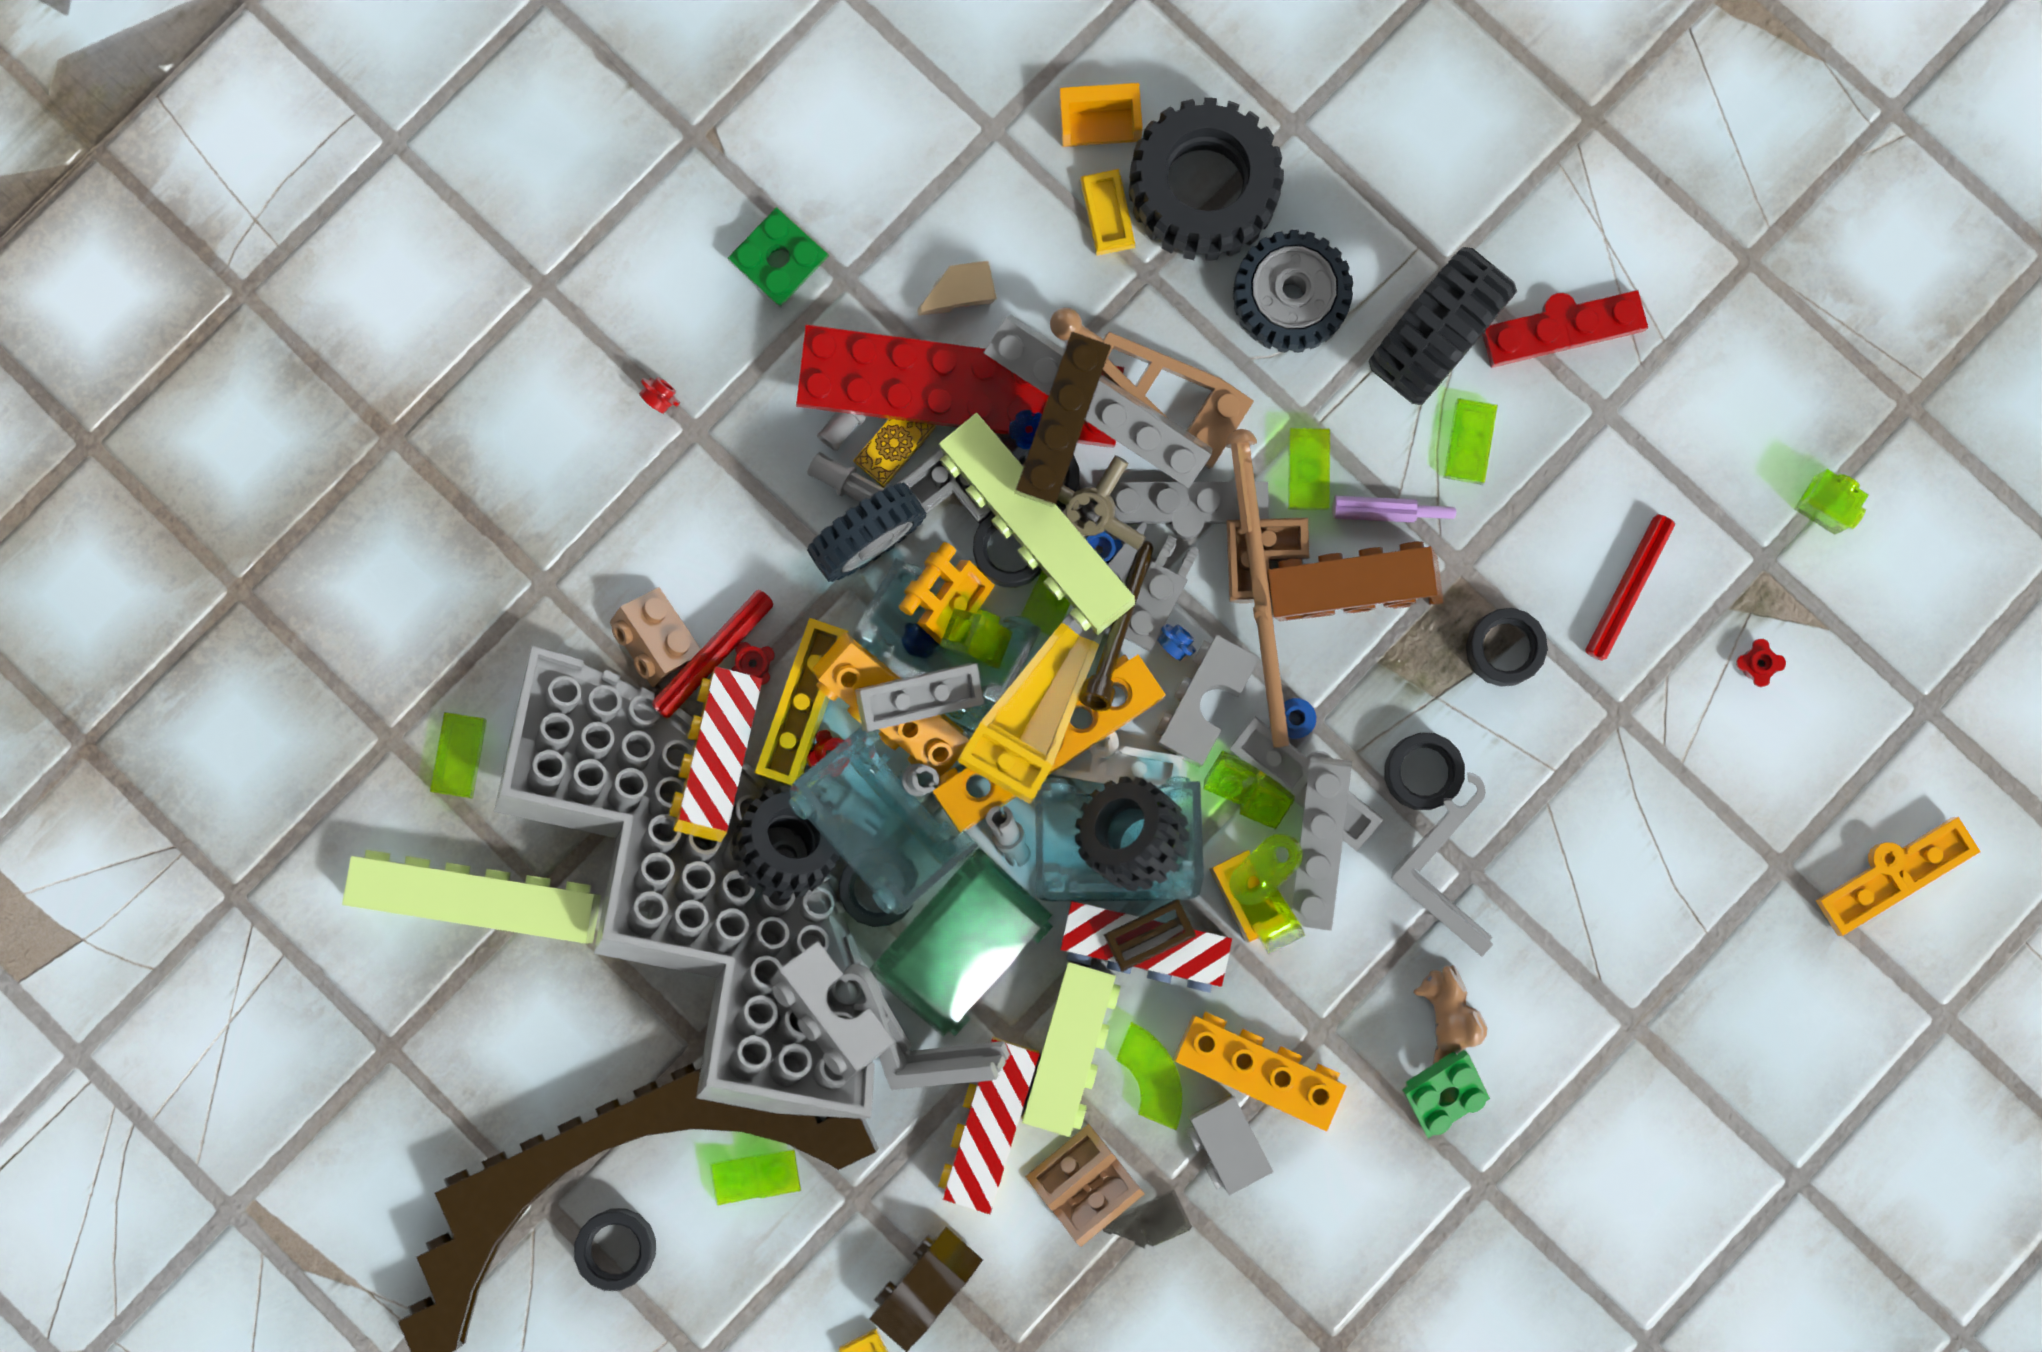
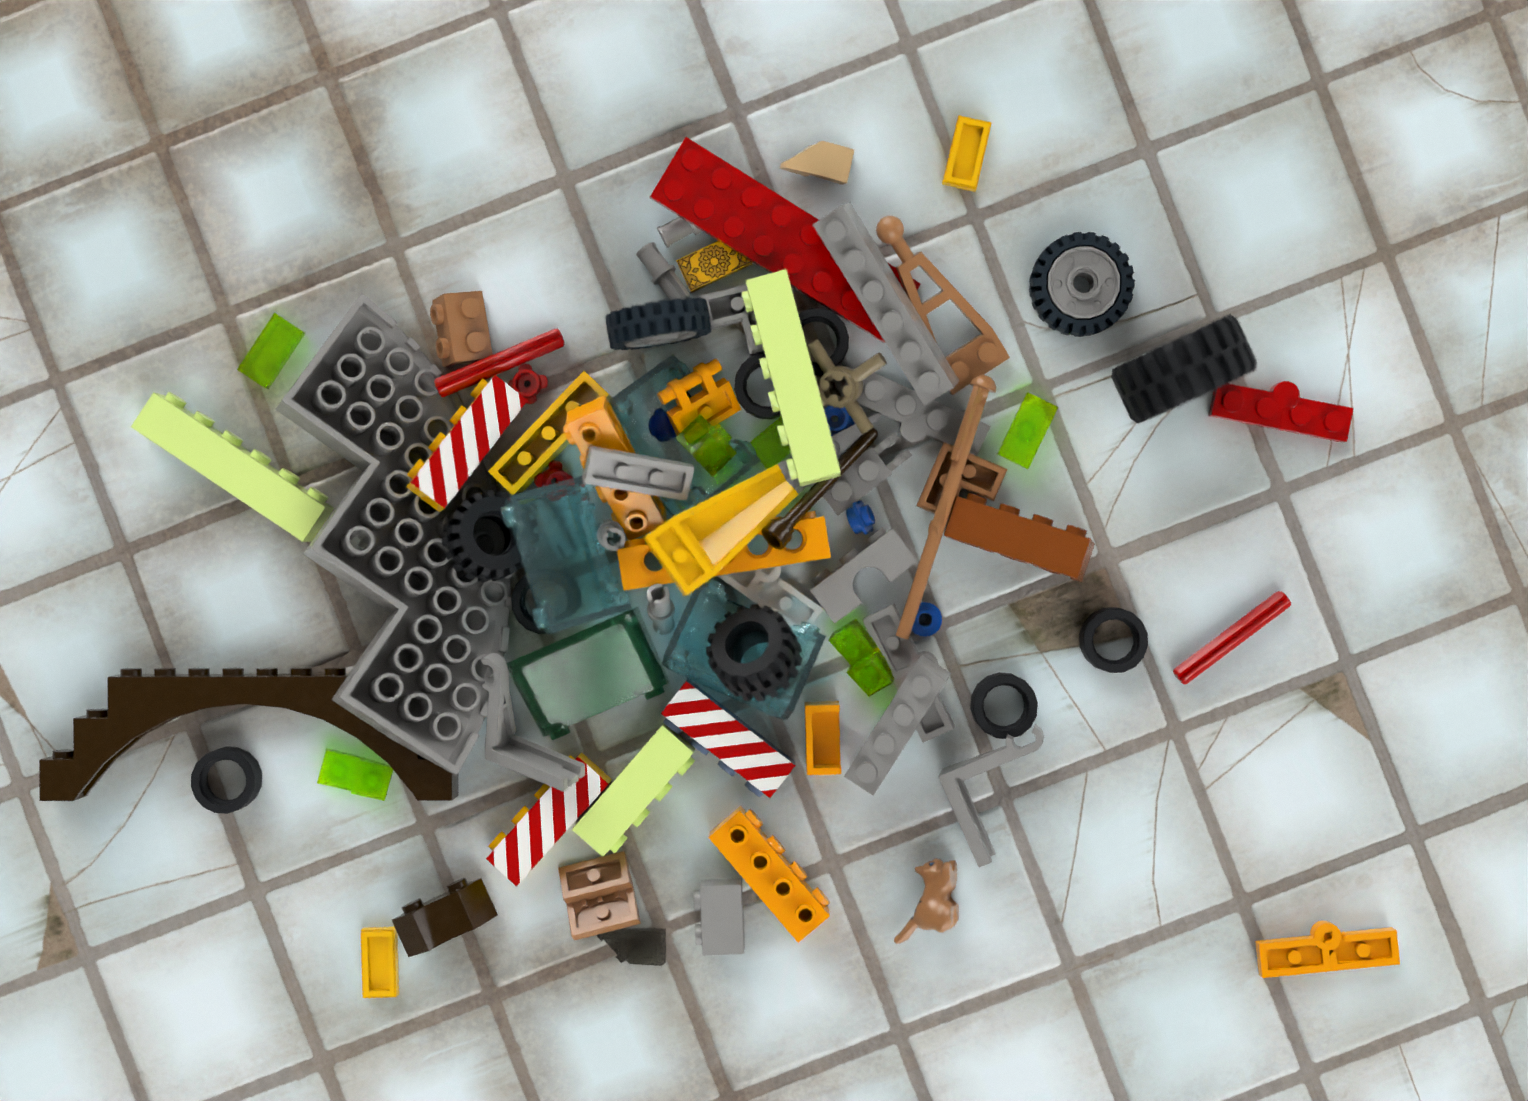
camera: 25 degrees right, 5 degrees up
(658, 394) = (548, 138): red plate -> none
(774, 234) = (696, 51): green piece -> none
(846, 1042) = (462, 712): light grey arch -> none
(1017, 427) = (822, 309): clear blue plate -> none
(1062, 419) = (848, 307): dark brown brick -> none
(1100, 114) = (997, 72): light orange panel -> none
(1155, 1074) = (690, 840): clear neon green tile -> none
(1181, 919) = (733, 748): dark brown tile -> none
(1215, 130) = (1081, 126): black tyre -> none
(1267, 868) = (845, 725): clear neon green plate -> none
(1273, 922) = (831, 763): clear neon green tile -> none
(1386, 509) = (1072, 490): lavender axle -> none
(1445, 1093) = (902, 954): piece -> none
(1470, 441) = (1163, 466): clear neon green plate -> none
(1749, 663) = (1294, 739): red plate -> none
(1833, 502) = (1422, 645): clear neon green brick -> none

